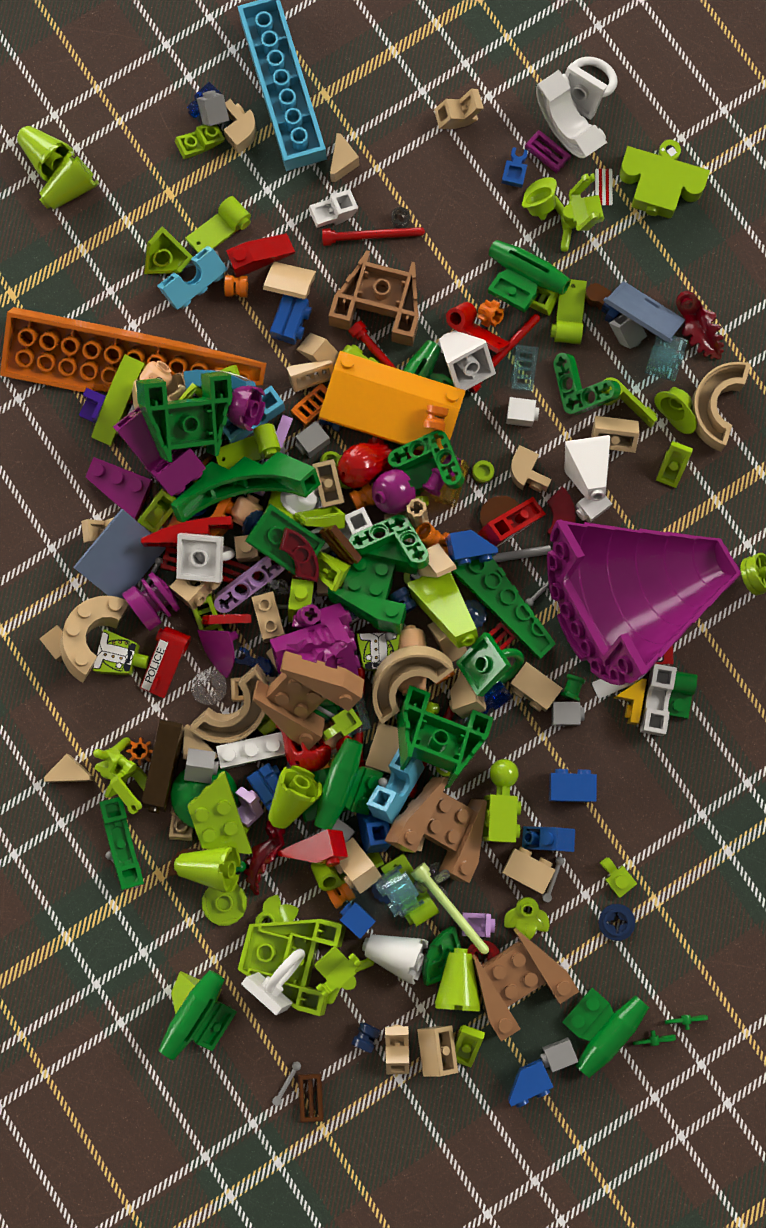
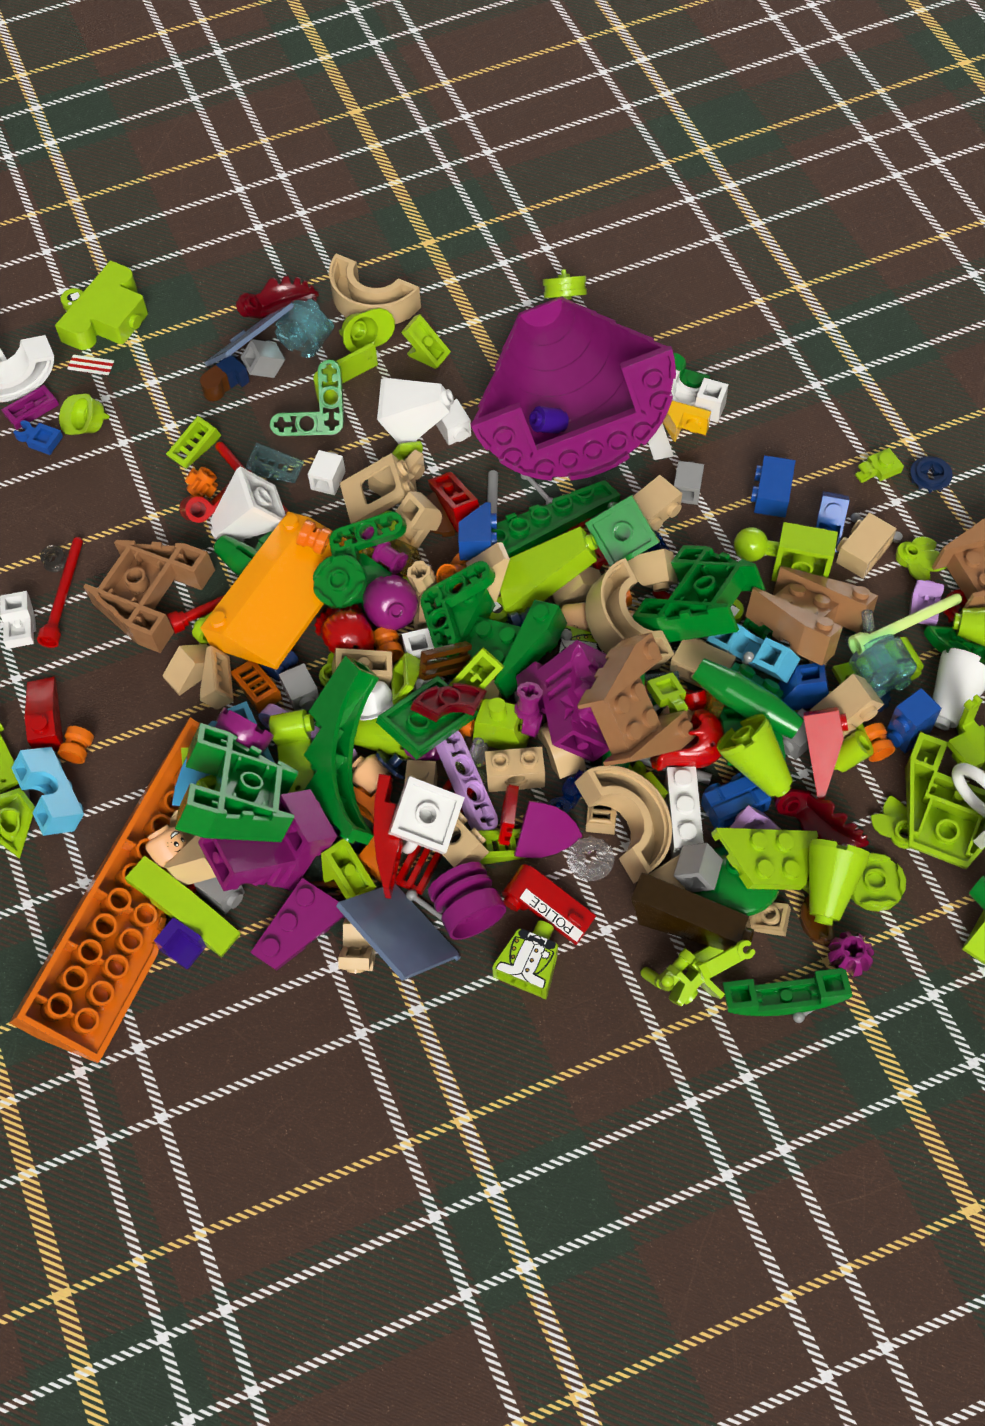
camera: 80 degrees left, 20 degrees down
(52, 642) = (499, 1036): tan brick -> none
(68, 771) = (676, 1049): tan slope -> none
(84, 618) = (495, 998): tan brick -> none
(136, 746) = (660, 942): orange gear -> none
(154, 893) = (860, 952): none -> magenta piece
(289, 280) = (90, 679): tan slope -> none
(290, 318) = (138, 690): blue brick -> none
(400, 447) = (339, 581): none -> green tile
(480, 496) = (420, 517): none -> tan brick
(493, 443) = (354, 495): none -> tan window
(523, 275) = (168, 443): green plate -> none
(556, 469) = (405, 449): none -> lime arm
(561, 507) = (458, 455): dark red tile -> none
(570, 314) = (226, 414): lime door -> none
(573, 687) = (654, 469): green bush -> none
(580, 212) = (116, 375): lime piece -> none
(604, 585) = (548, 420): none -> dark purple brick
(622, 432) = (368, 393): tan brick -> none

